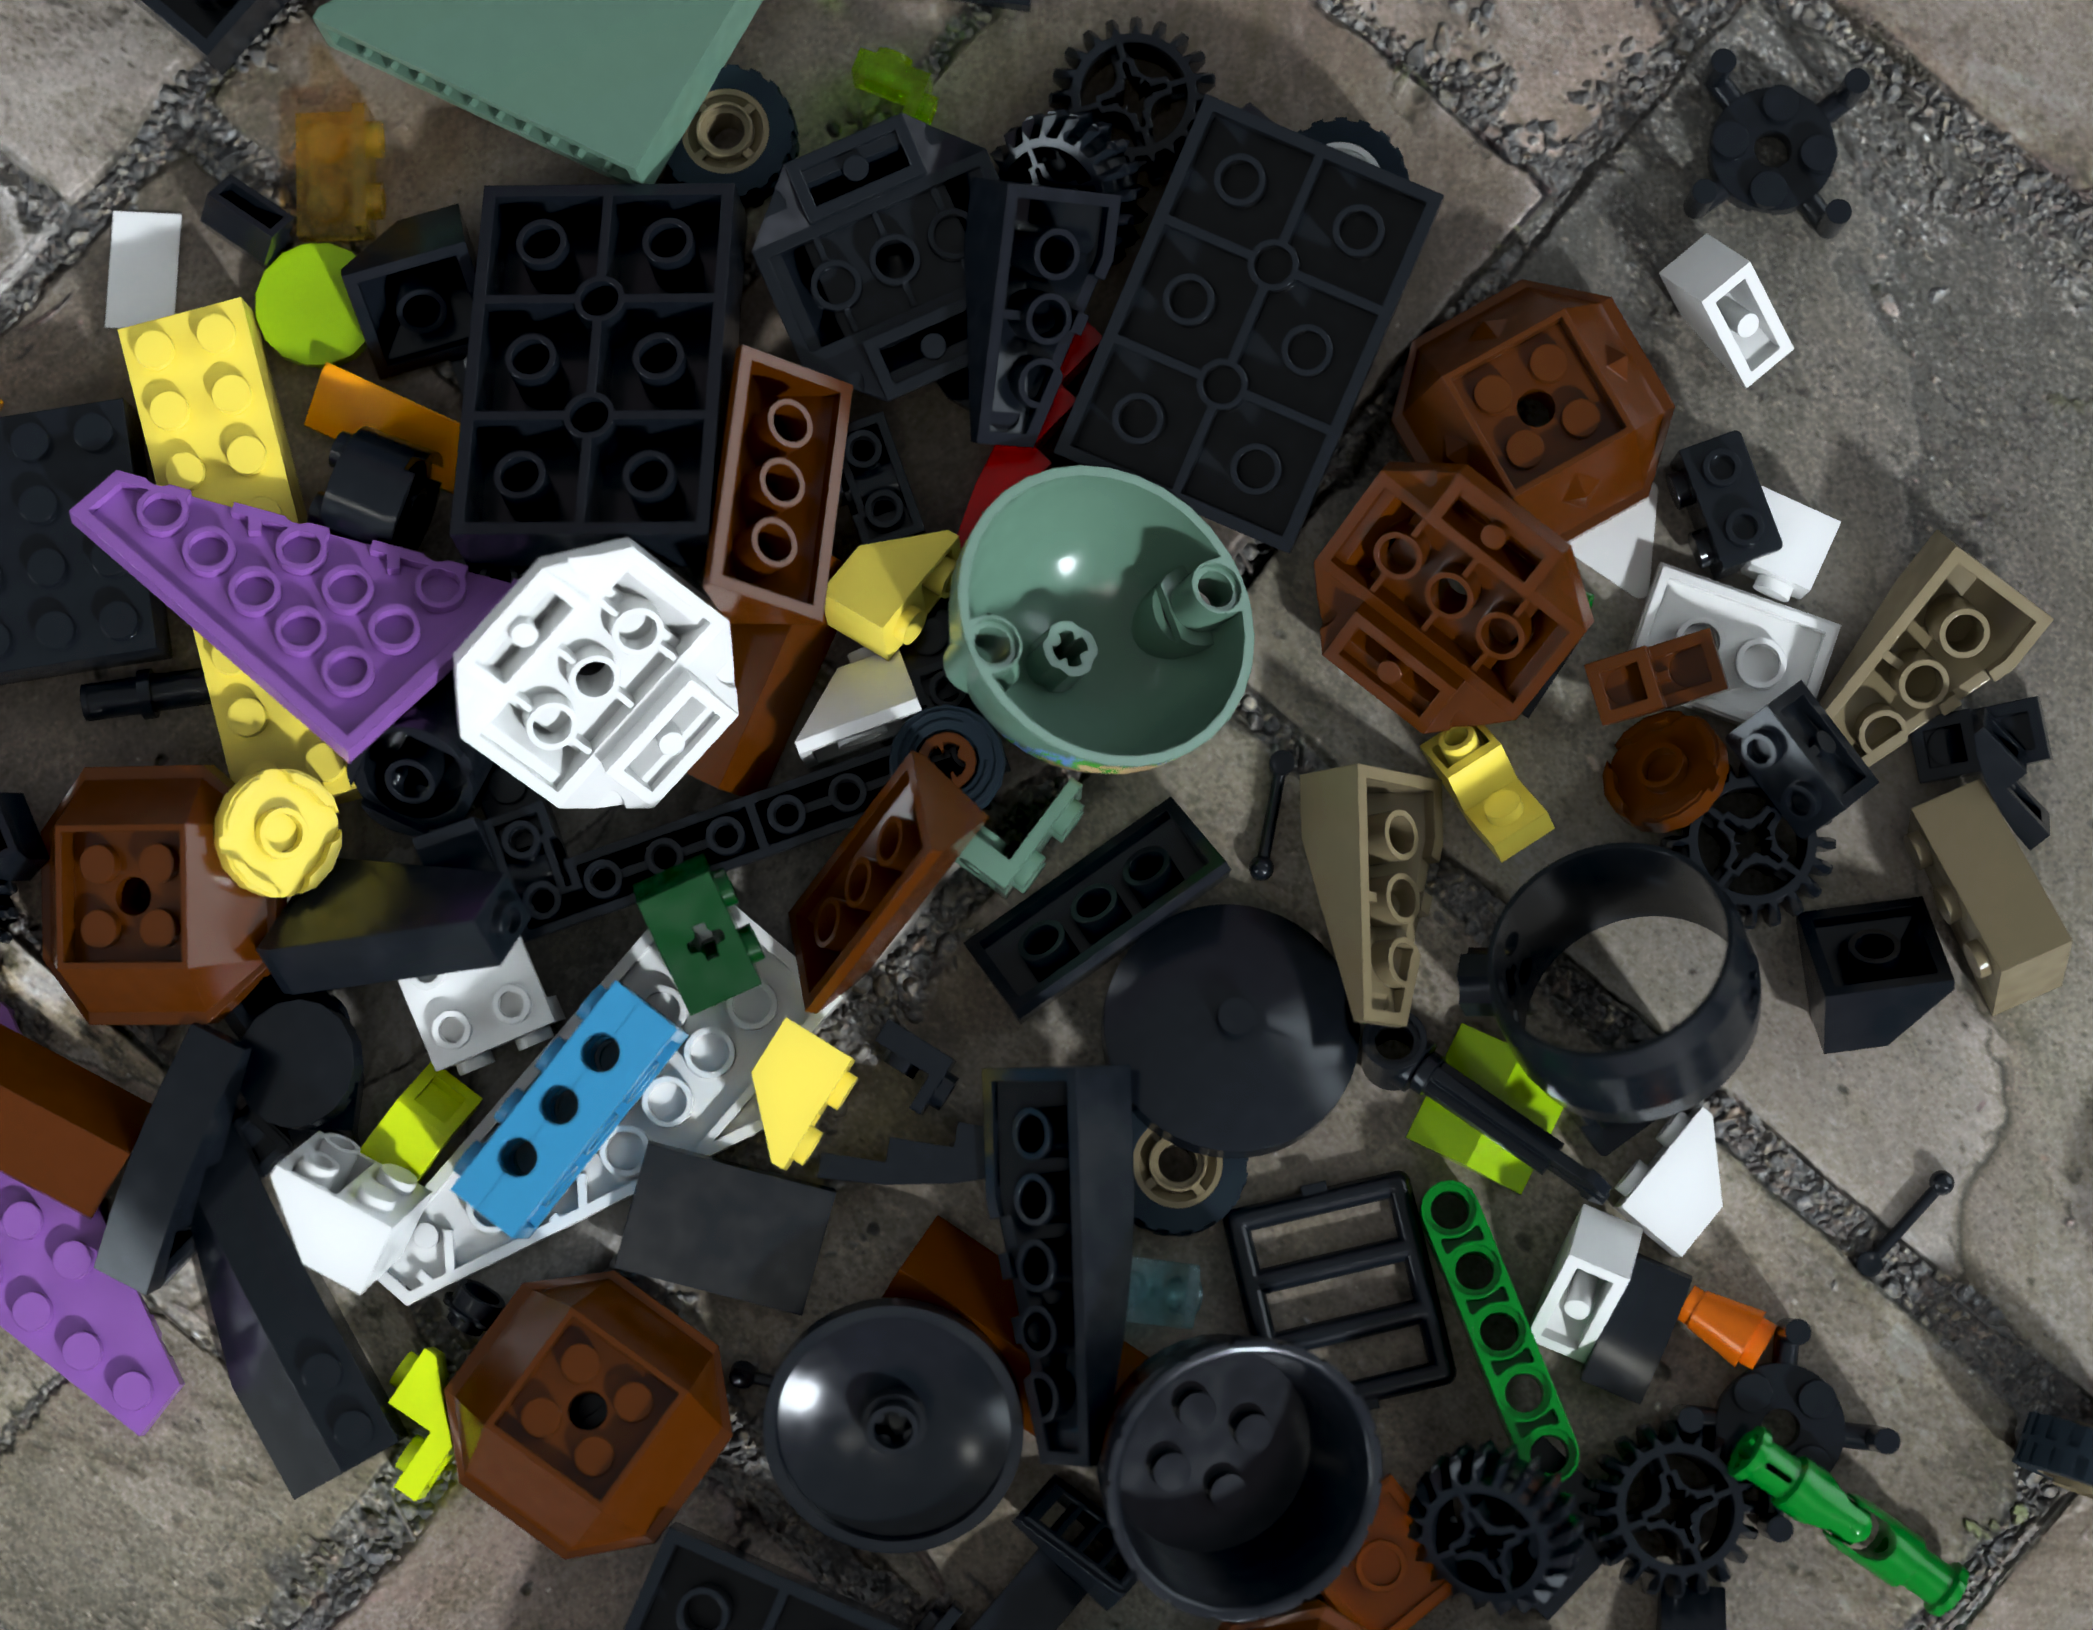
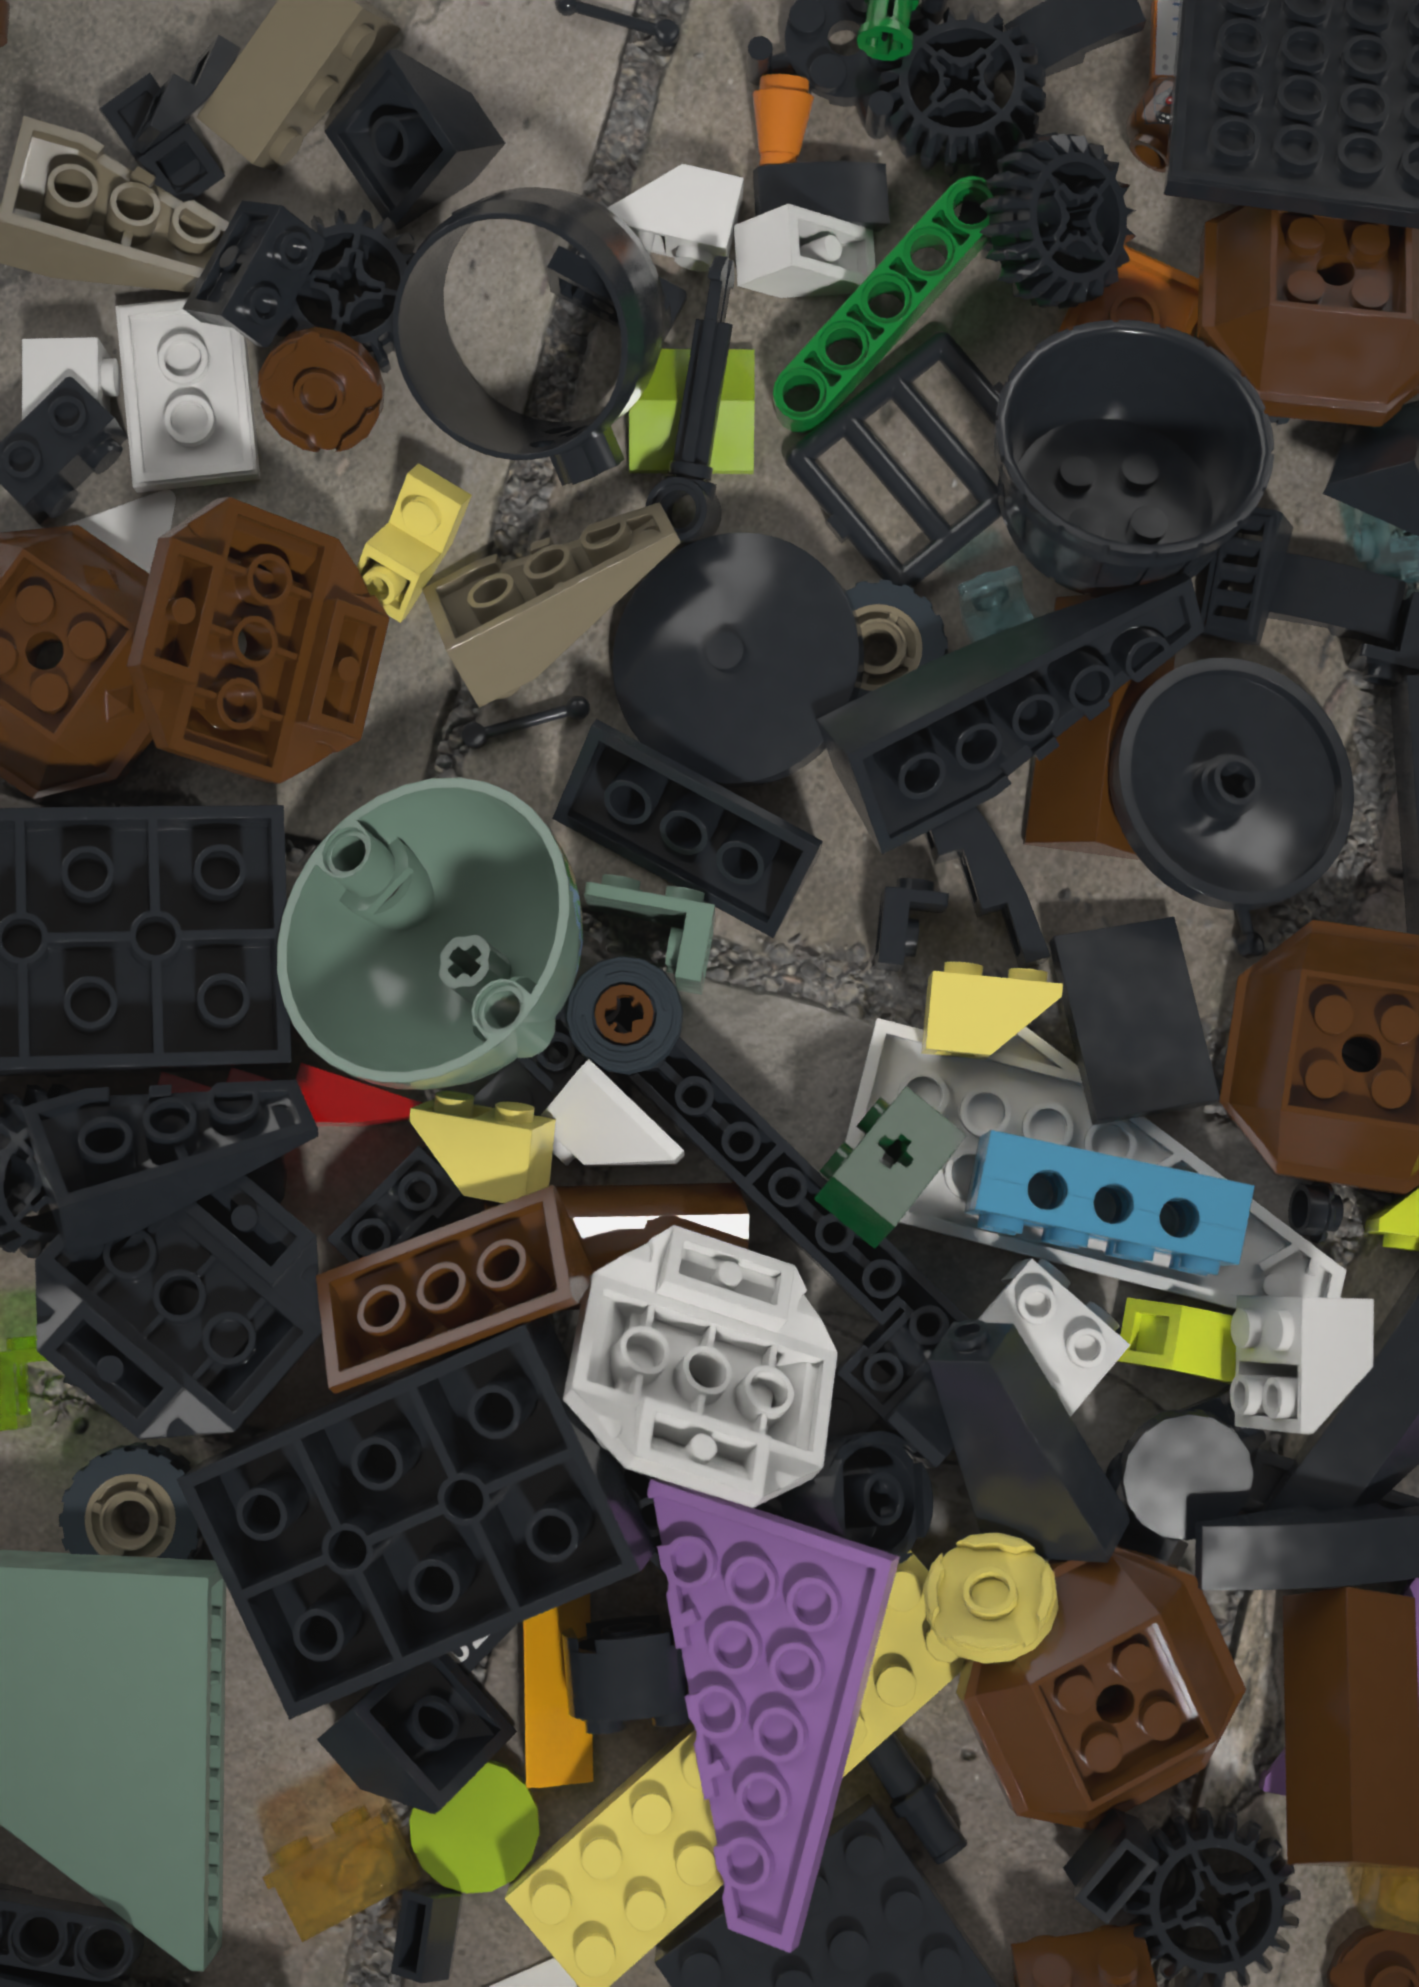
camera: 120 degrees left, 0 degrees up
(879, 877) = (758, 1026): reddish brown slope -> none
(1657, 677) = (239, 437): reddish brown slope -> none

